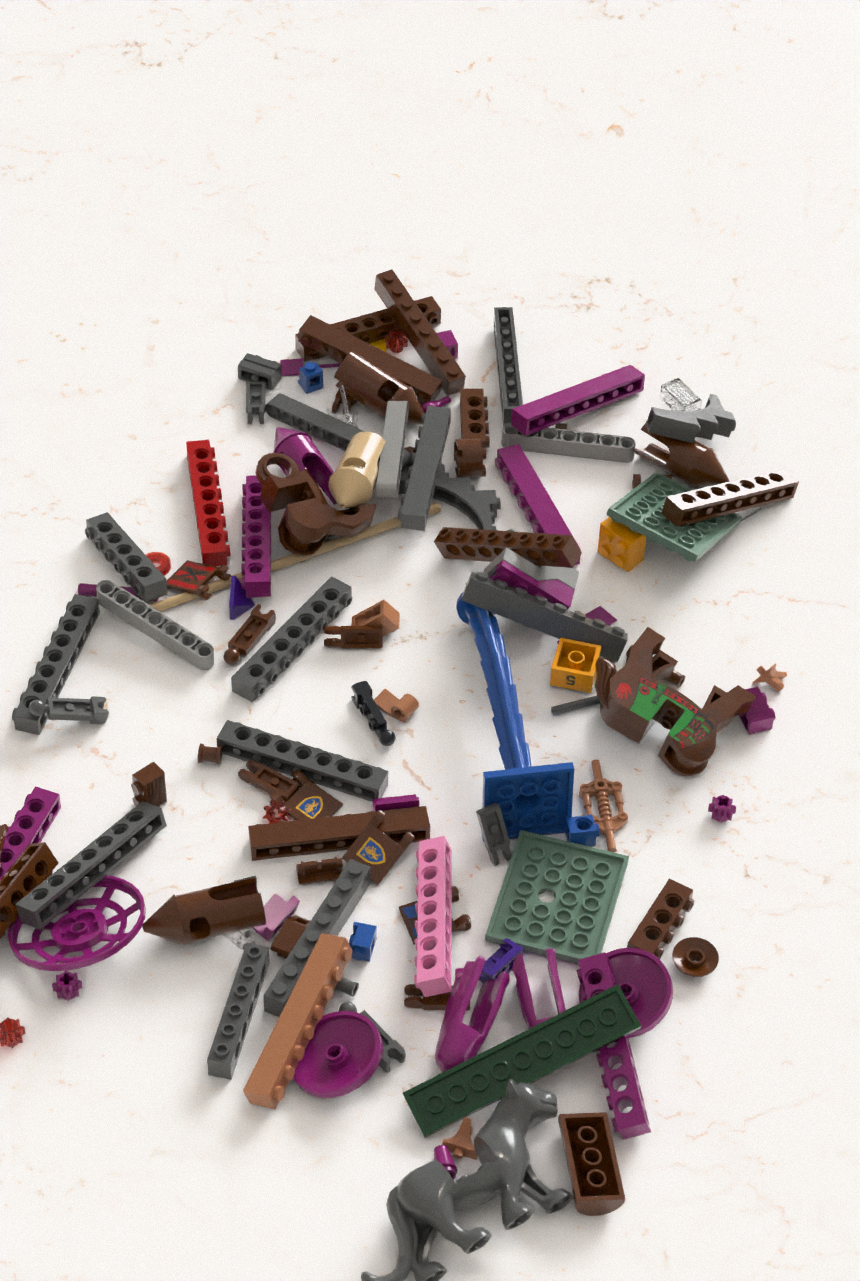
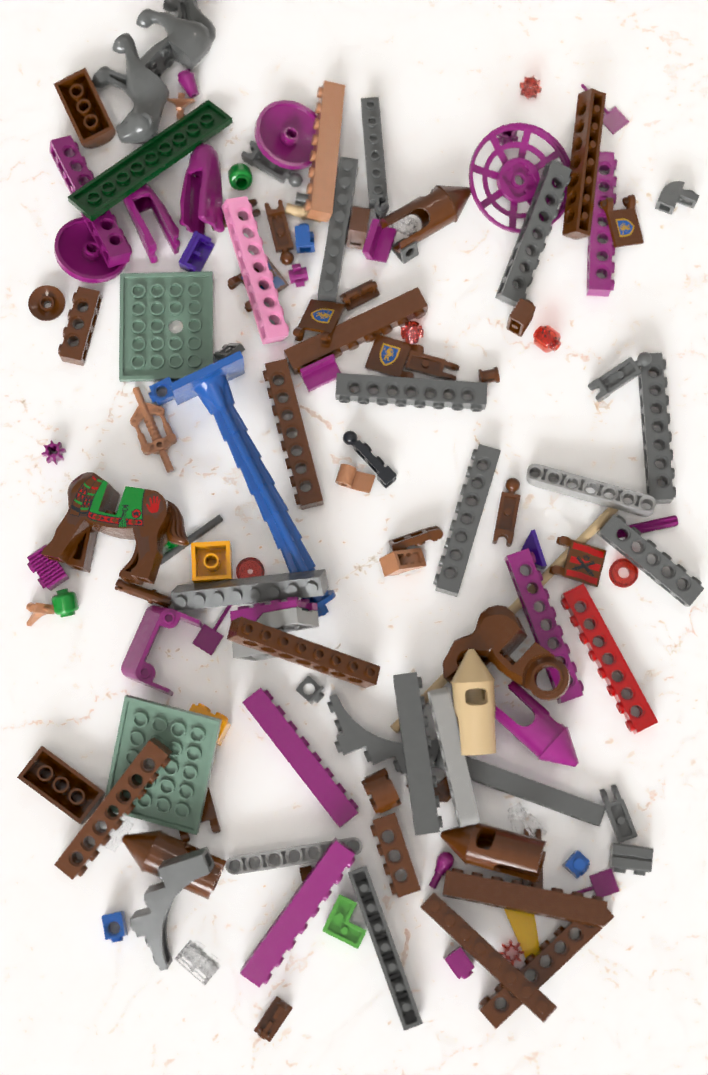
camera: 165 degrees right, 30 degrees up
(125, 766) = (547, 338): none -> clear red head
(256, 933) = (381, 206): none -> dark grey pin
(354, 974) = (297, 211): none -> tan pin
(384, 904) = (298, 275): none -> magenta gear
(388, 959) = (280, 232): none -> reddish brown plate
(415, 1027) = (240, 176): none -> green head
(447, 761) = (280, 370): none -> reddish brown brick
(536, 387) = (339, 925): none -> bright green plate
(537, 666) = (247, 564): none -> clear red piece
(624, 353) = (273, 1019): none -> reddish brown hinge
(667, 619) = (135, 662): none -> magenta windscreen
(741, 674) = (65, 603): none -> green head
(751, 438) = (108, 919): none -> blue brick
(780, 536) = (62, 785): none -> reddish brown brick

